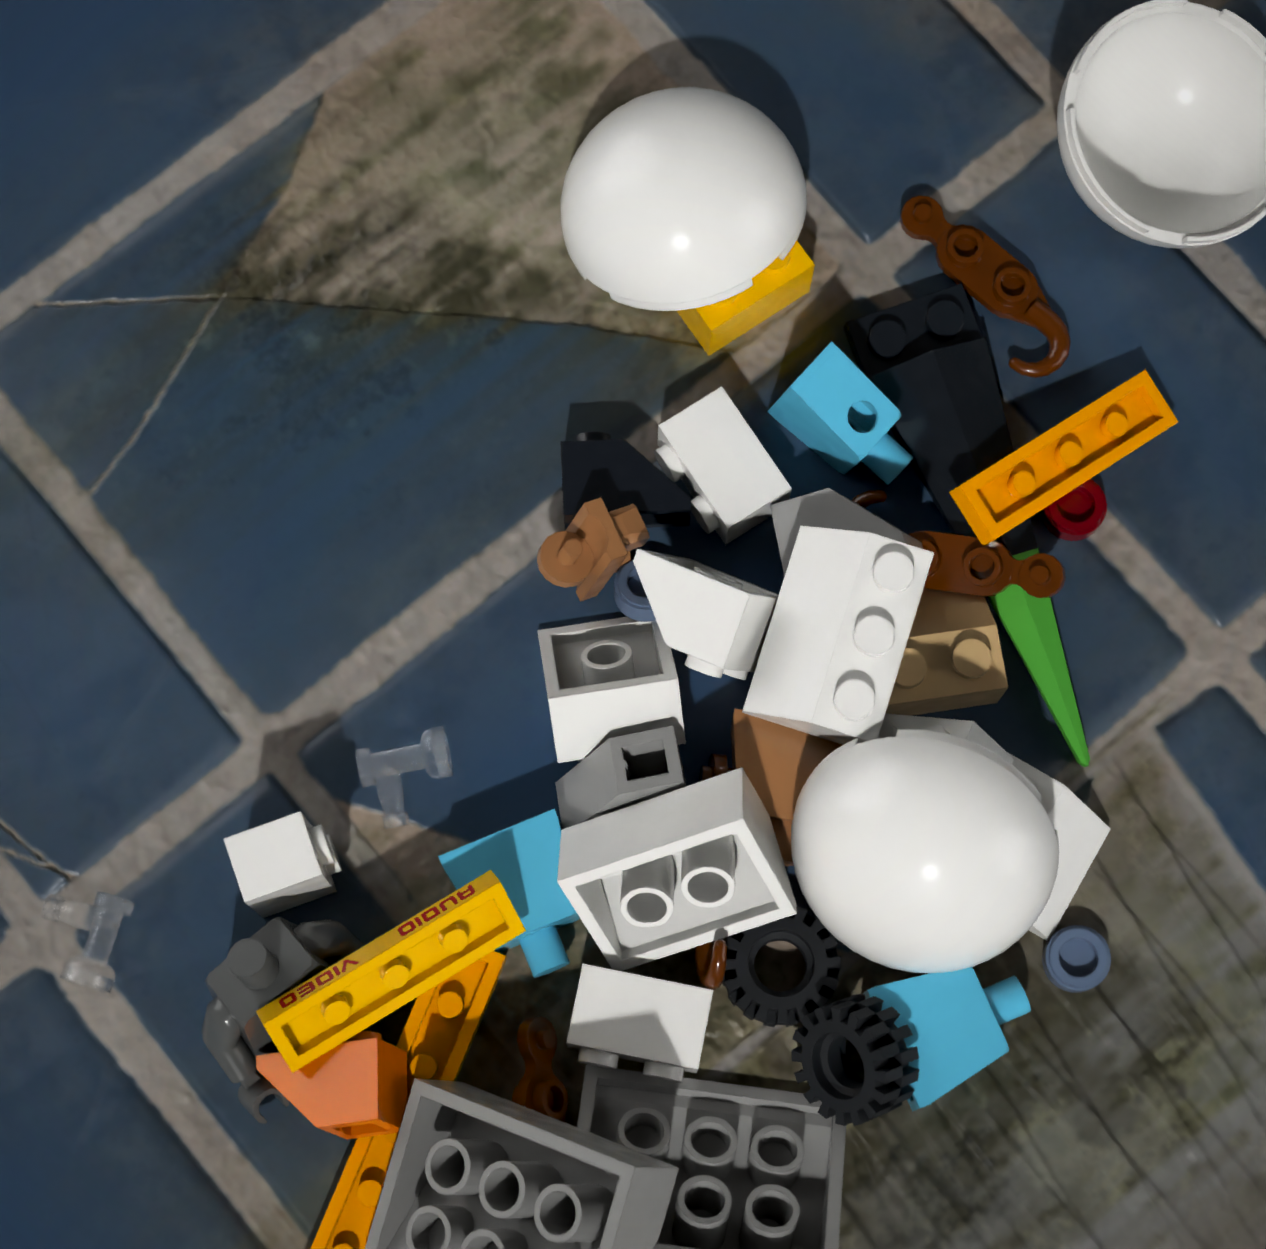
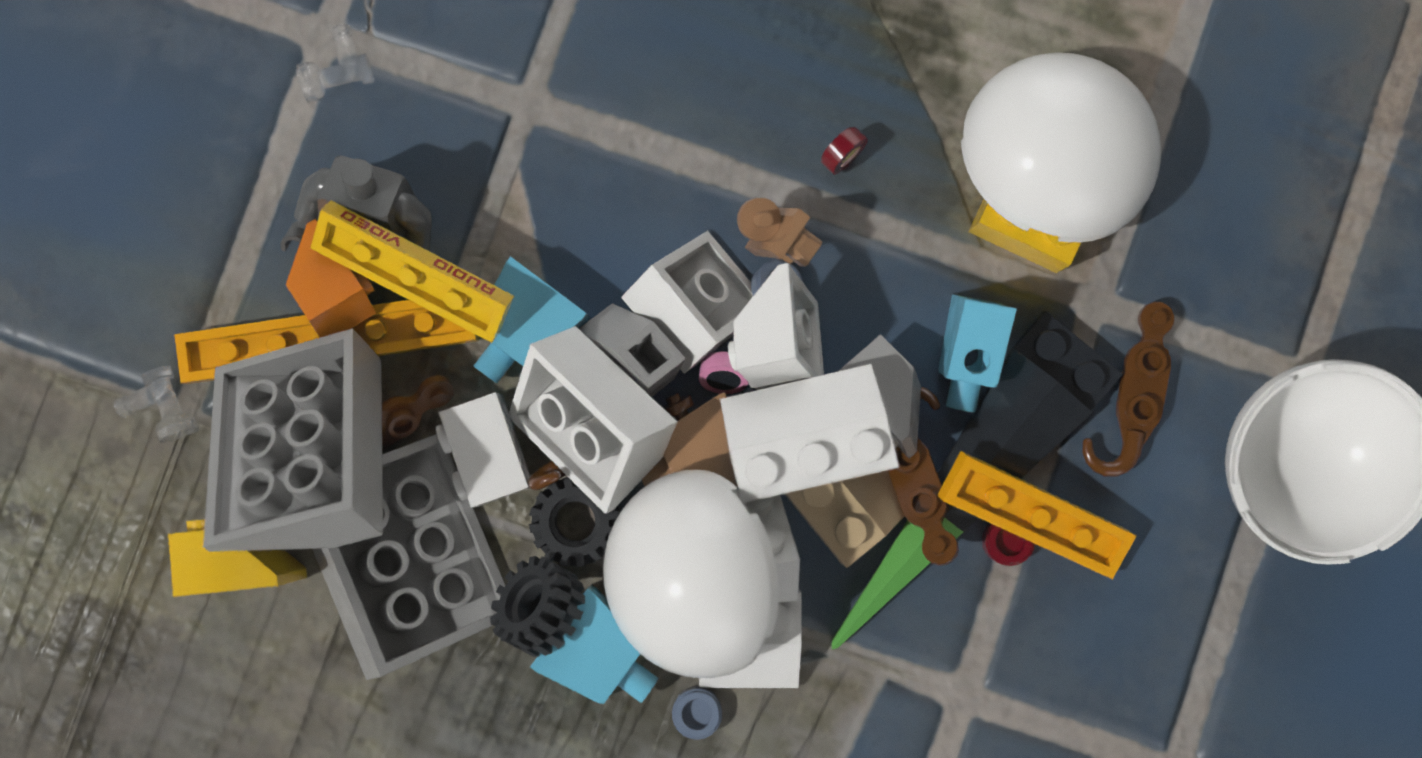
camera: 60 degrees right, 10 degrees up
(283, 864) = (445, 158): white brick -> none
(385, 767) = (555, 187): clear piece -> none
(540, 430) = (843, 150): none -> dark red tile
(621, 476) = (836, 220): black slope -> none
(710, 702) = (718, 375): none -> bright pink tile
(720, 466) = (891, 286): white brick -> none

